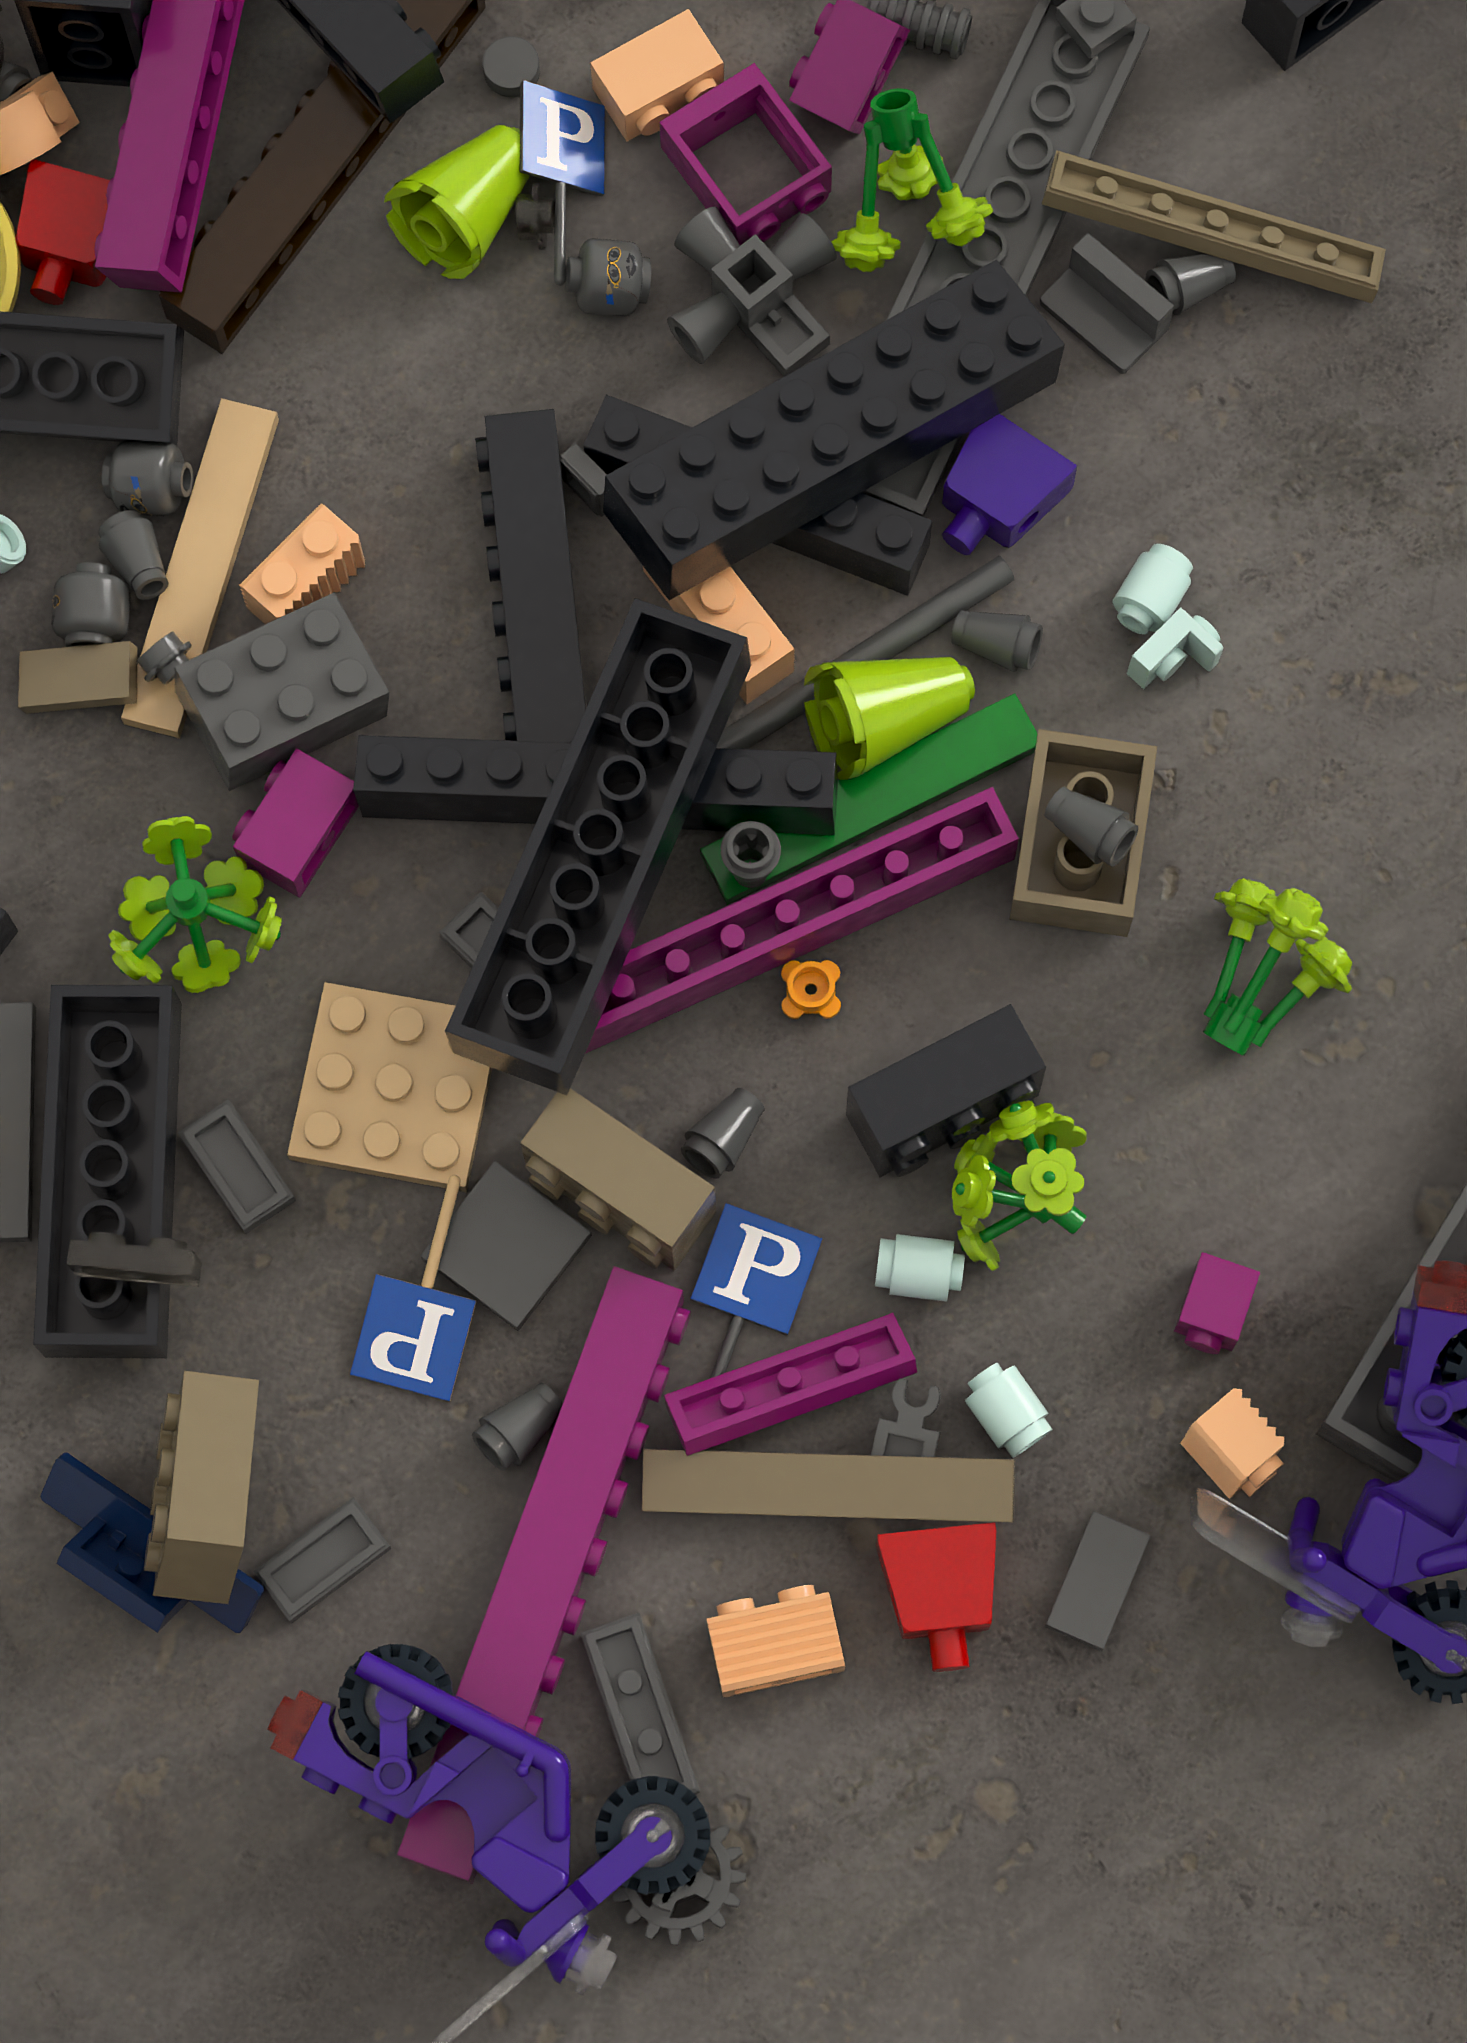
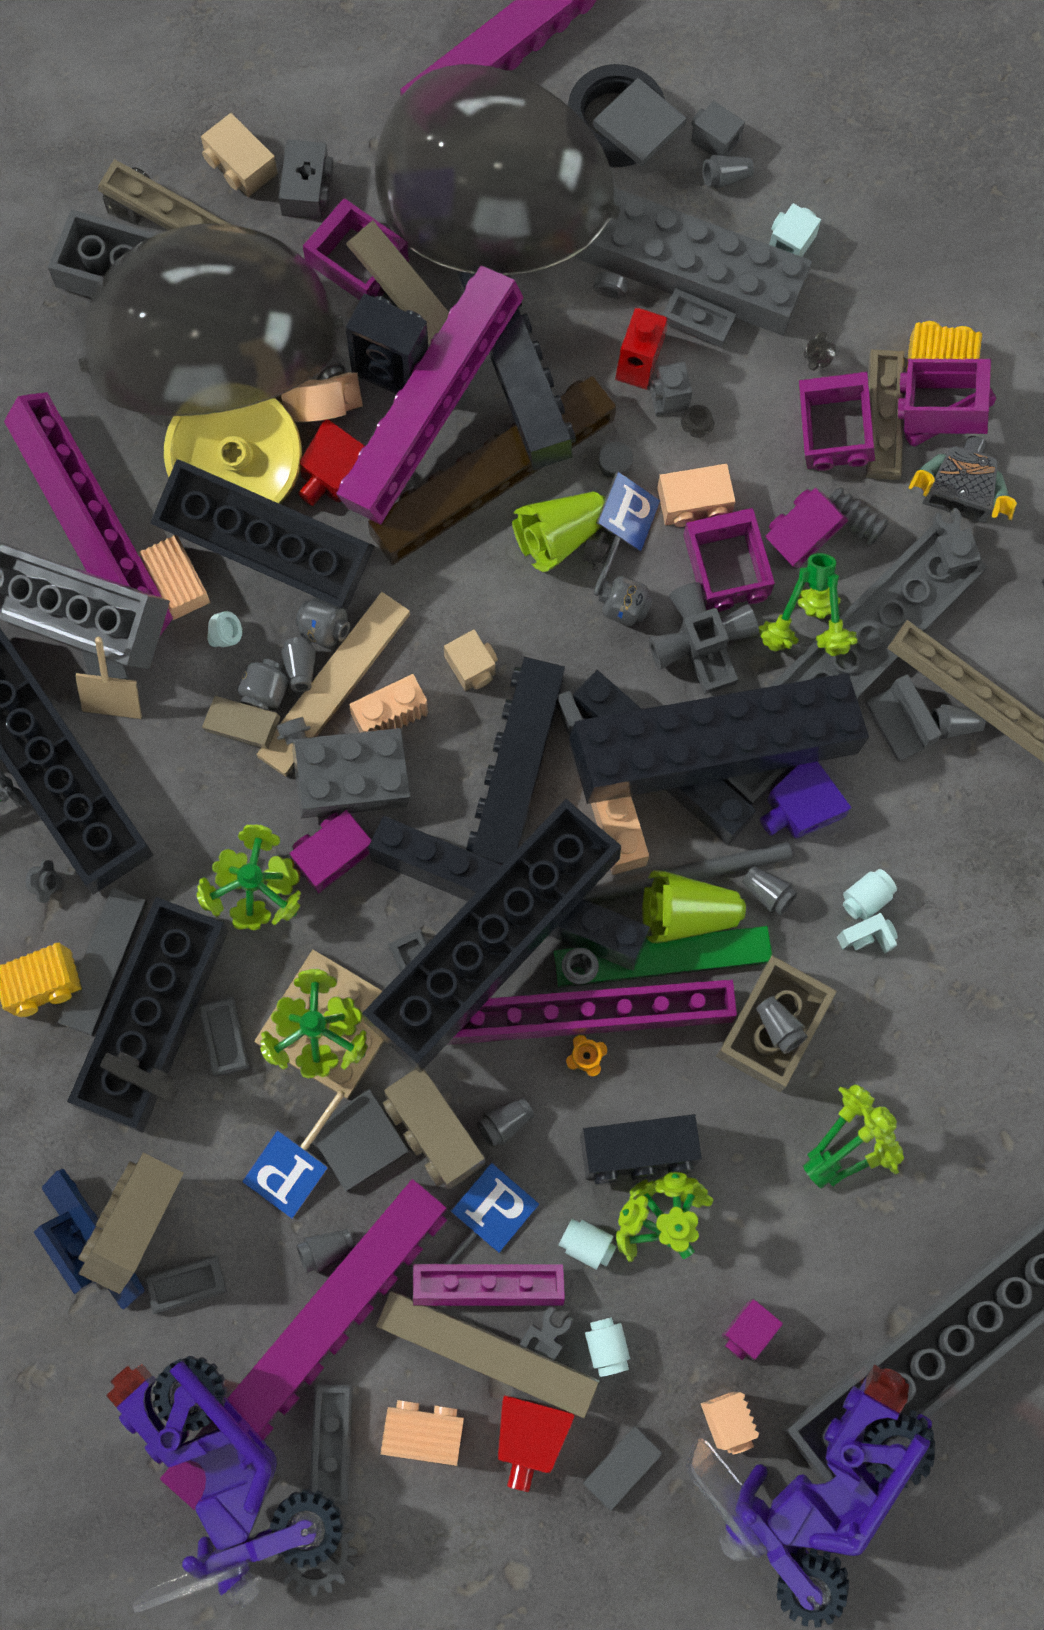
camera: 15 degrees right, 0 degrees up
(342, 1095) = (296, 1021): none -> lime plant
(403, 454) = (471, 660): none -> tan brick

